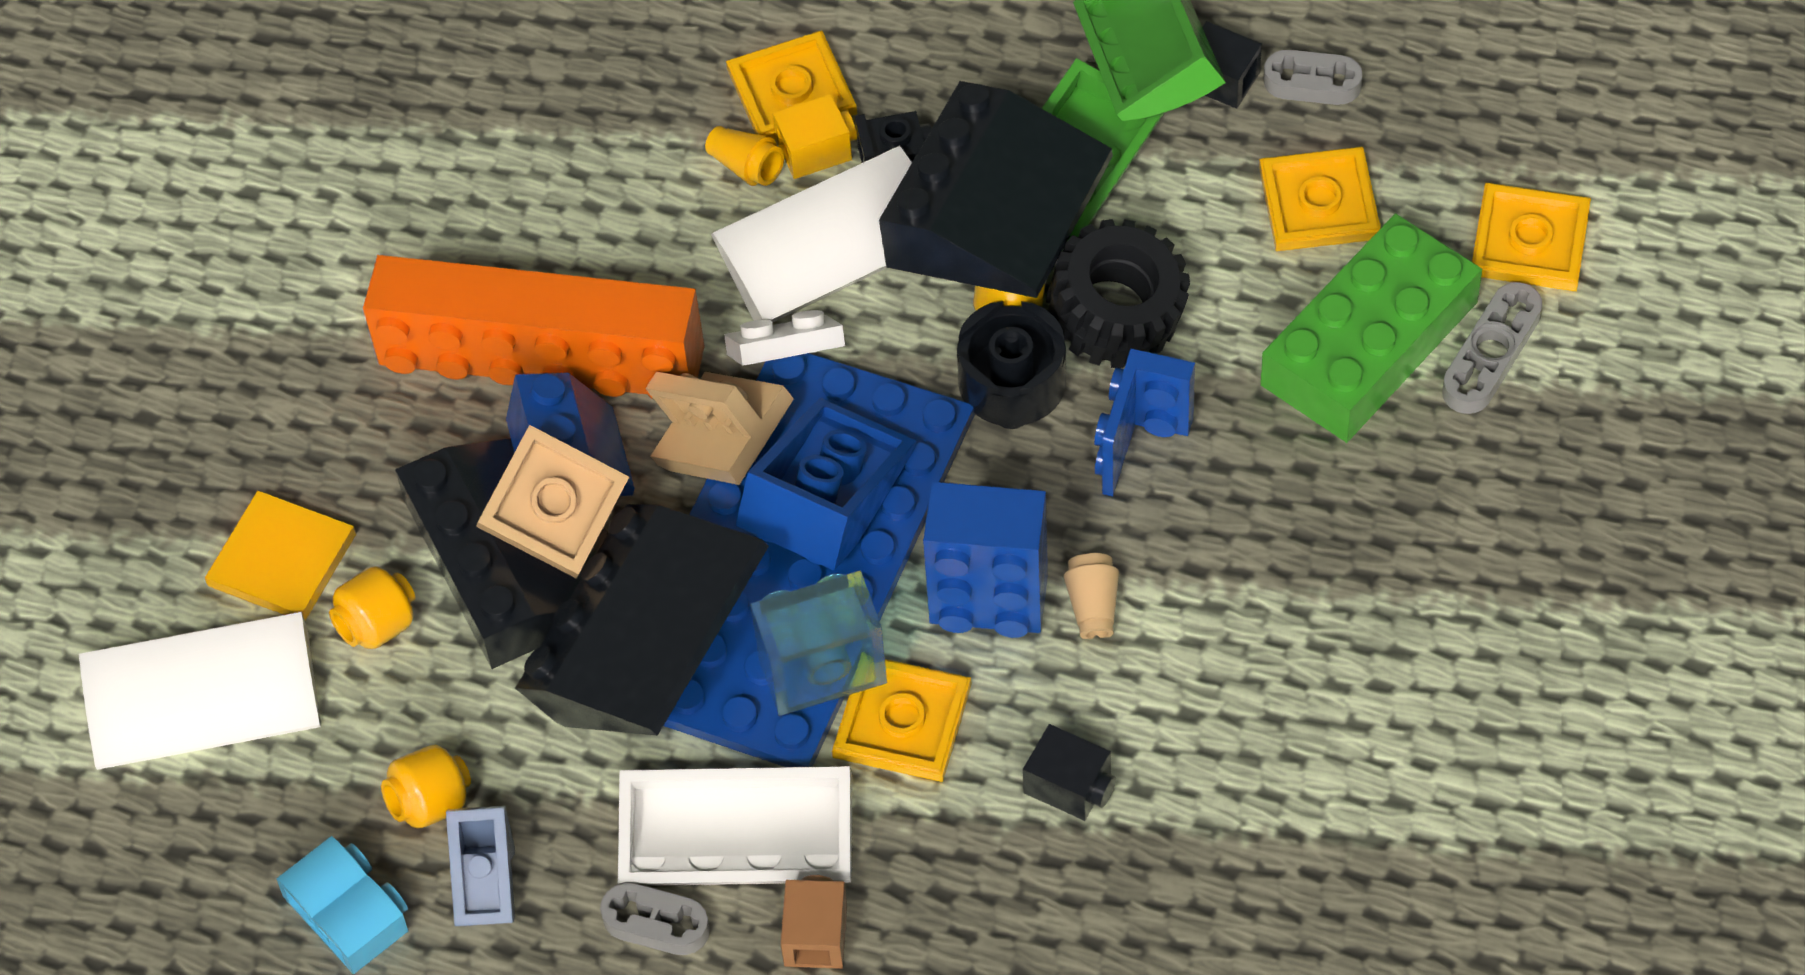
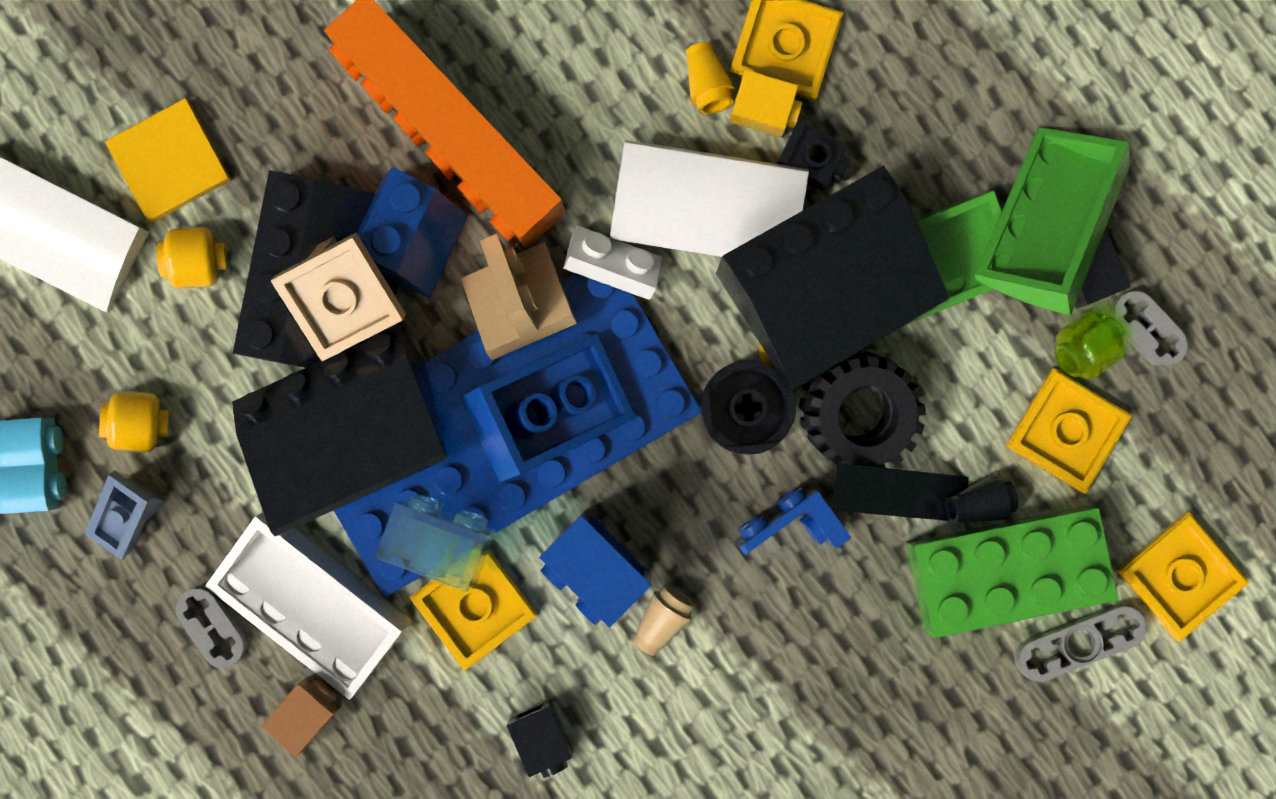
camera: 35 degrees right, 30 degrees up
(1210, 324) = (894, 491): none -> black sticker
(1272, 117) = (1090, 345): none -> clear neon green head
(1293, 292) = (984, 501): none -> black cone

